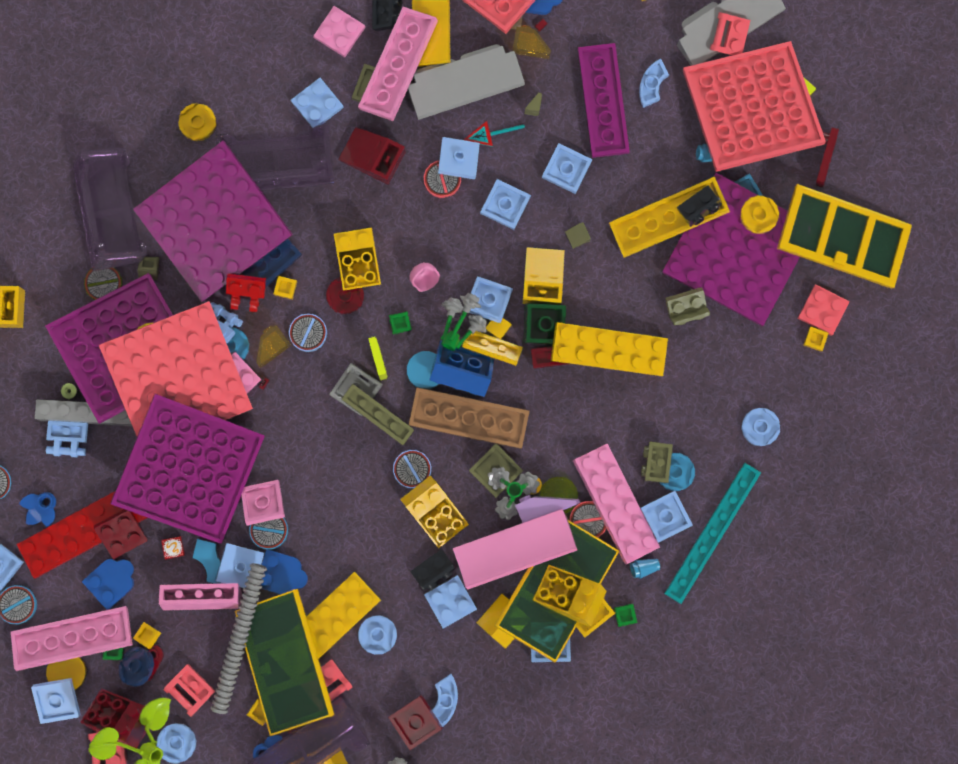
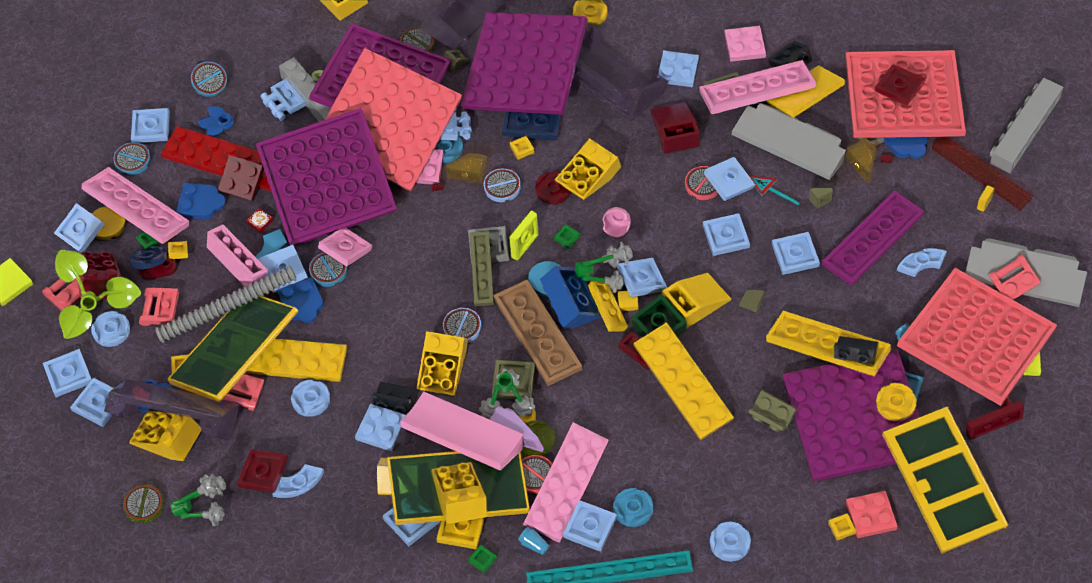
camera: 55 degrees right, 25 degrees down
(245, 286) = (498, 119): red plate -> none
(657, 462) = (626, 483): olive bracket -> none

